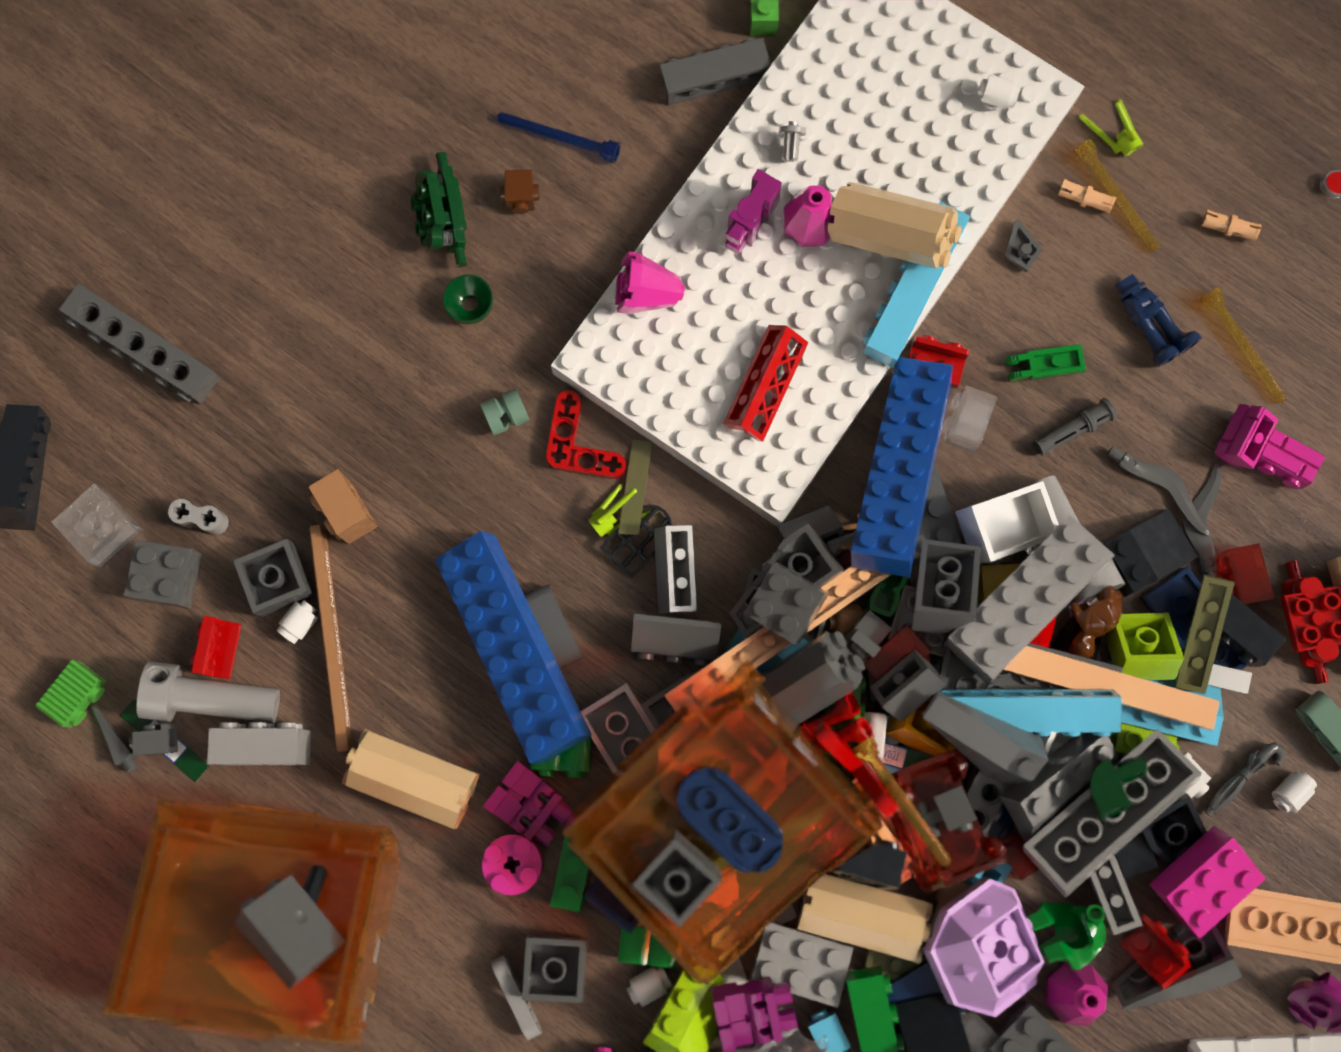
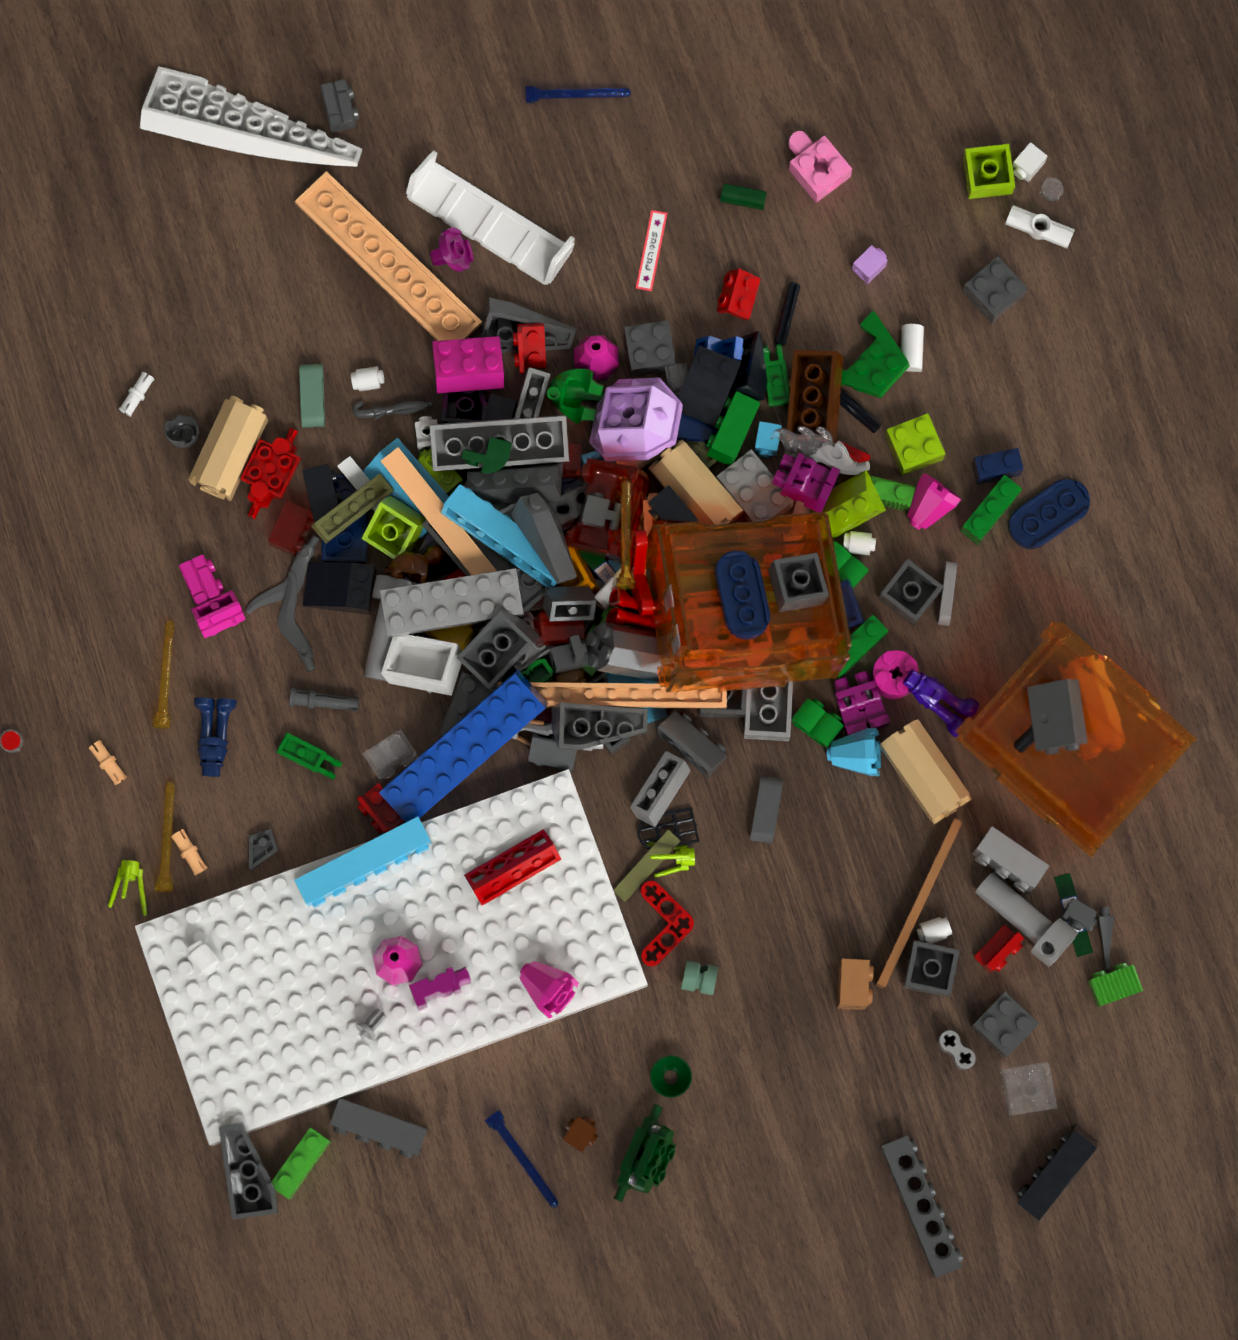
camera: 145 degrees left, 0 degrees up
(459, 868) = (930, 691): none -> dark purple piece
(493, 752) = (857, 752): none -> medium azure cone
(512, 648) = (802, 809): blue brick -> none
(786, 603) = (608, 706): dark grey brick -> none
(894, 225) = (354, 904): tan brick -> none

